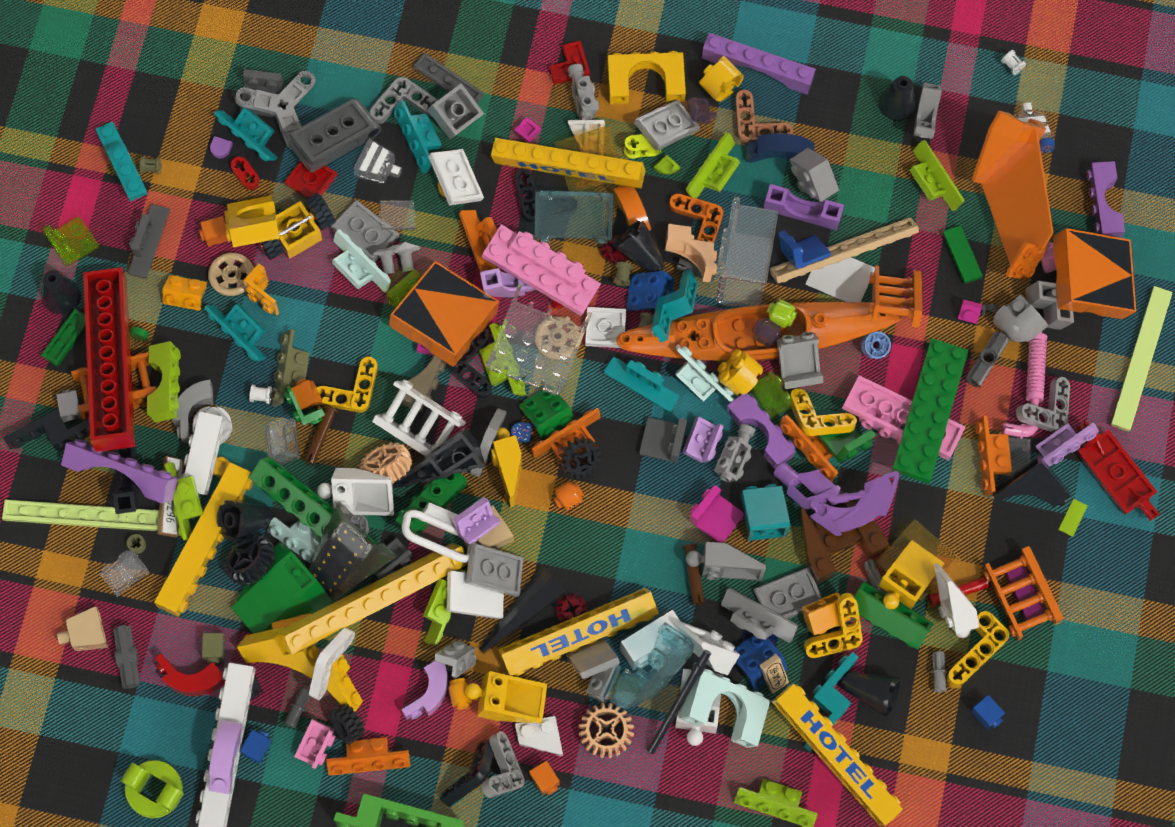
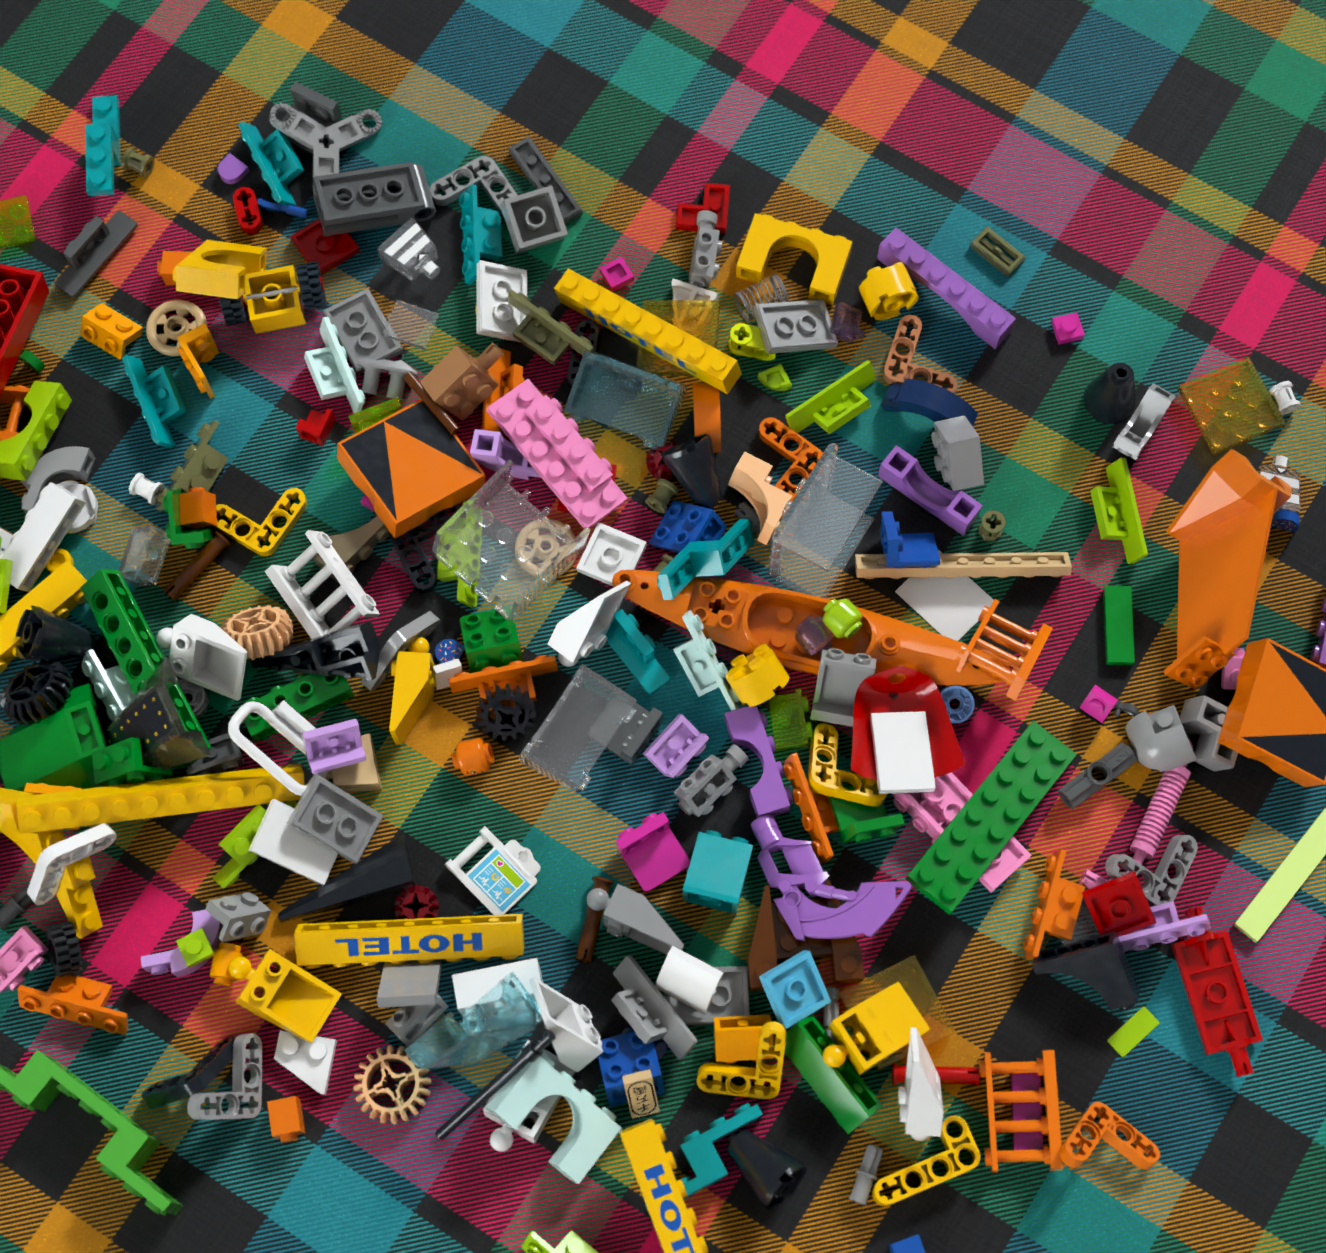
camera: 25 degrees right, 0 degrees up
(276, 162) = (290, 209): none -> blue piece
(336, 585) = (124, 765): none -> green bracket
(362, 309) = (316, 427): none -> red panel
(437, 689) = (195, 947): none -> lime plate
(441, 264) = (438, 411): none -> reddish brown bar
(456, 241) = (462, 381): none -> medium nougat brick
(497, 189) = (544, 333): none -> olive bracket
(526, 445) = (444, 671): none -> white tile
(610, 382) = (586, 628): none -> white slope
(619, 568) = (500, 875): none -> piece
(626, 119) = (777, 294): none -> light grey piece
(633, 451) = (578, 729): none -> clear windscreen
(776, 588) = (688, 979): none -> white slope
(781, 28) = (997, 257): none -> olive tile
(848, 568) = (795, 989): none -> medium azure plate
(849, 218) = (984, 528): none -> olive bush
(850, 63) = (1067, 328): none -> dark pink plate
(853, 376) = (915, 694): none -> red piece
(856, 389) = (902, 752): none -> white tile
(980, 80) = (1231, 405): none -> clear yellow plate
(1035, 438) = (1119, 906): none -> red plate
(1104, 590) = (1106, 1129): none -> orange beam

